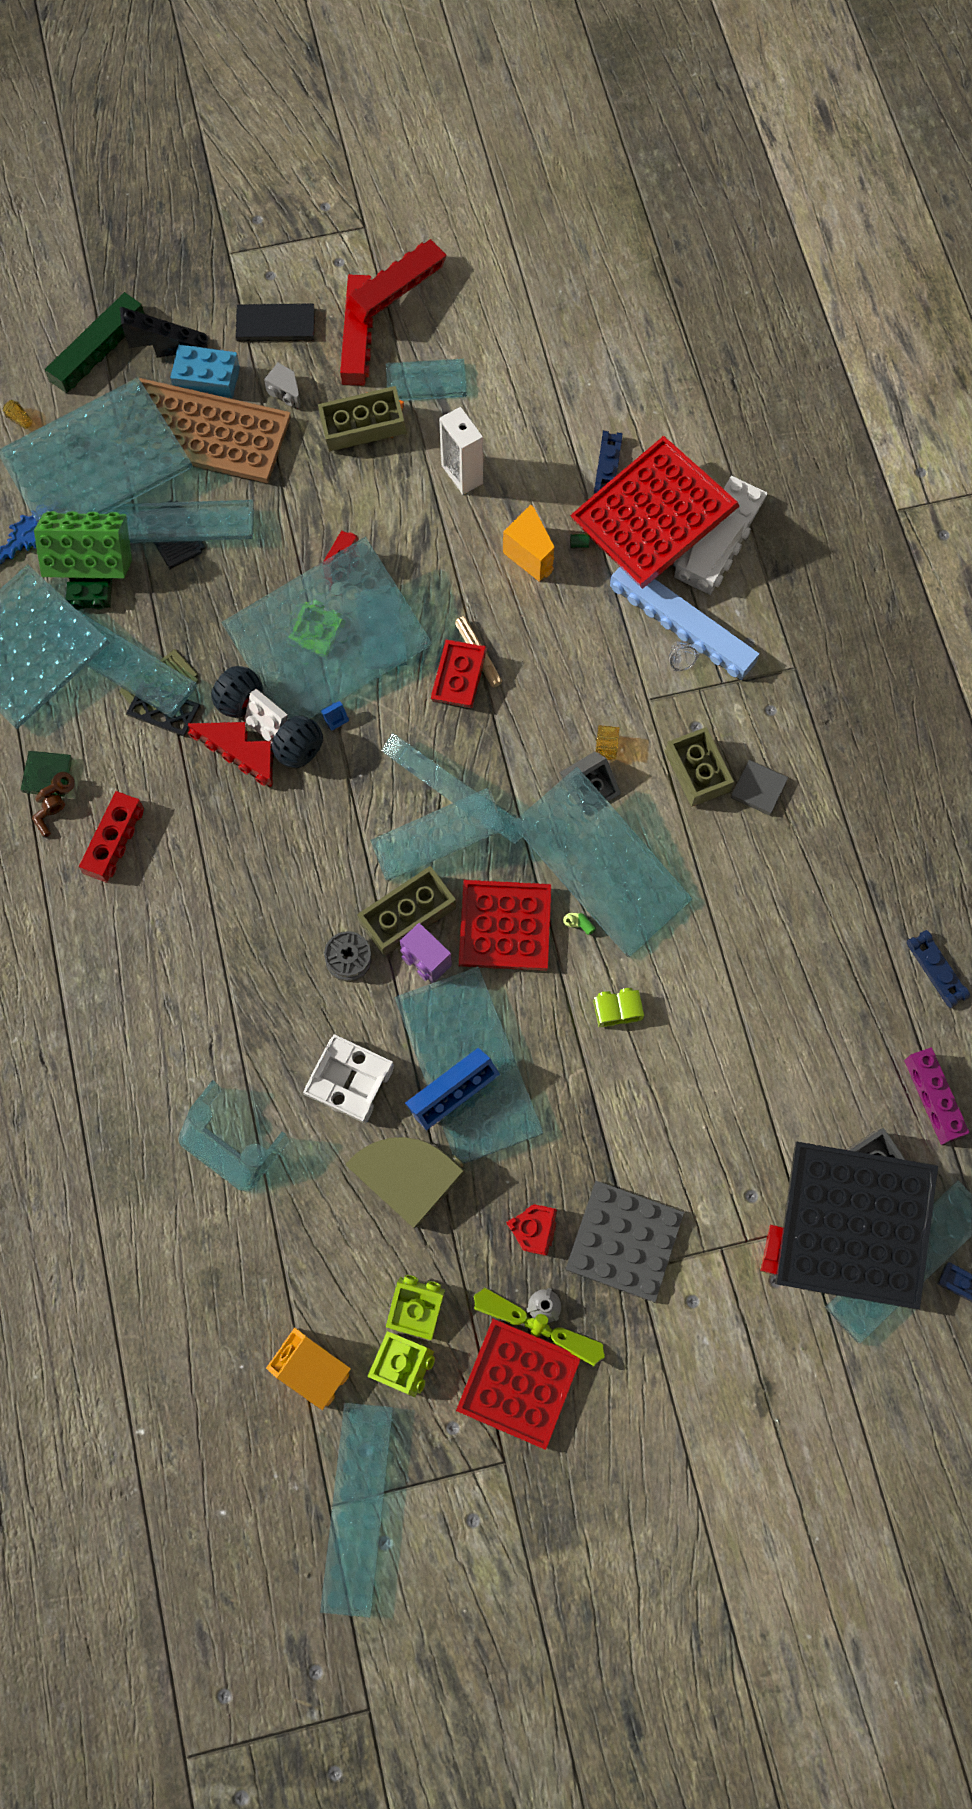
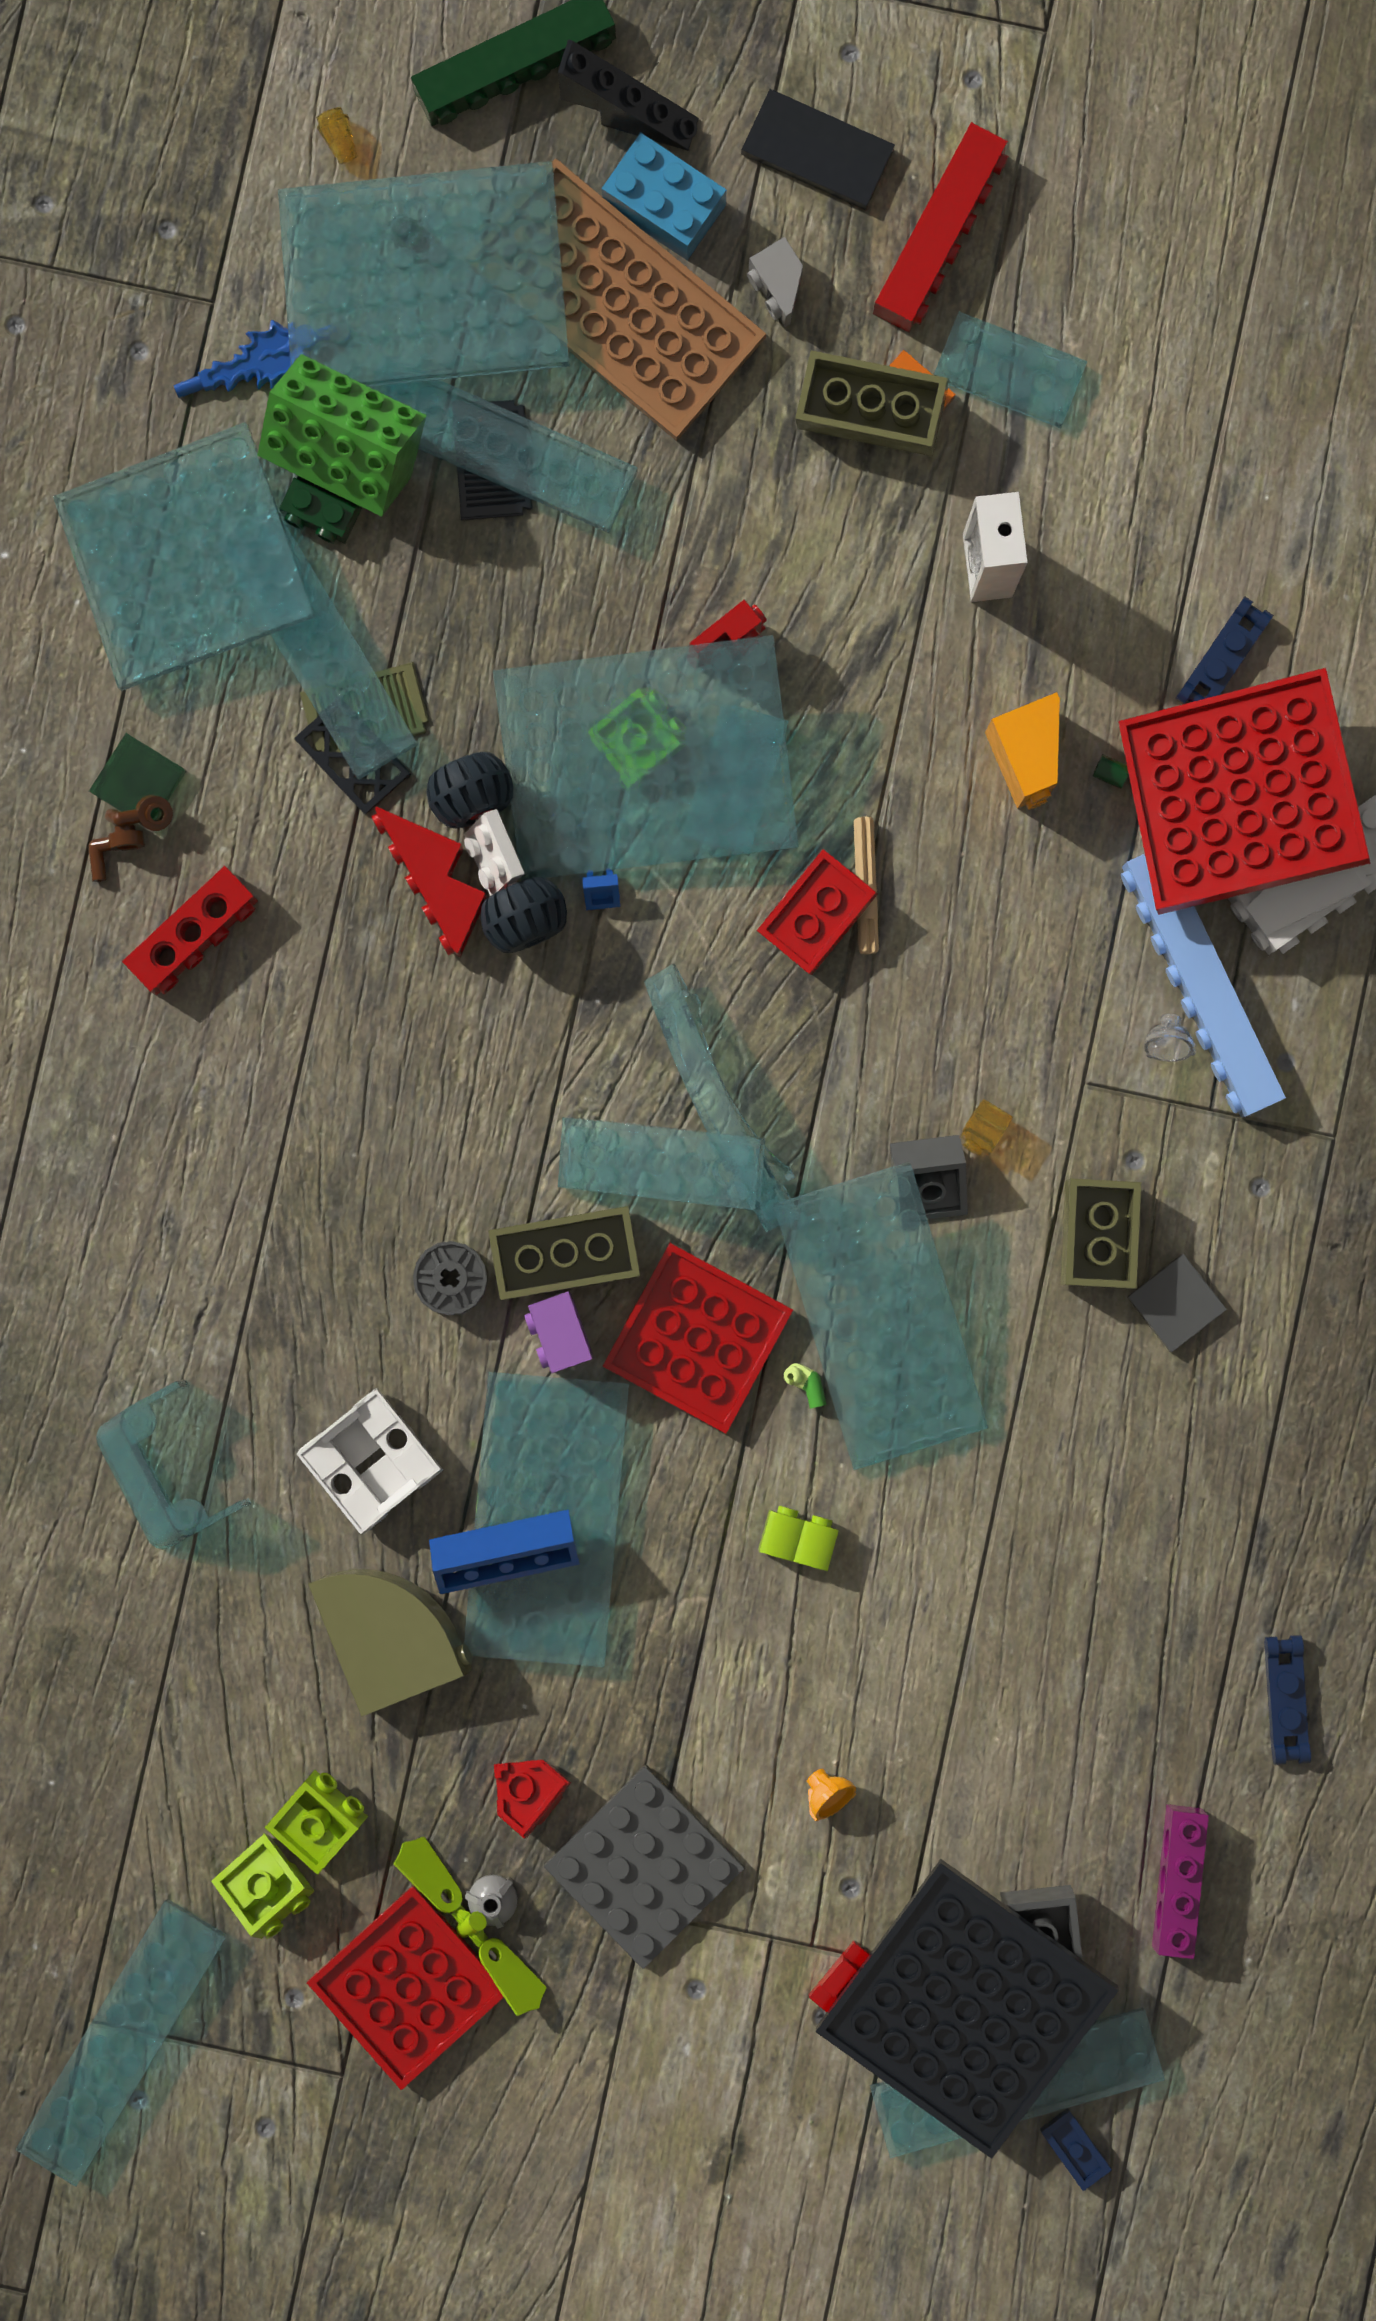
camera: 25 degrees right, 15 degrees up
(308, 1369) = (135, 1833): light orange slope -> none
(395, 280) = (1043, 172): red brick -> none
(710, 1144) = (828, 1794): none -> light orange piece

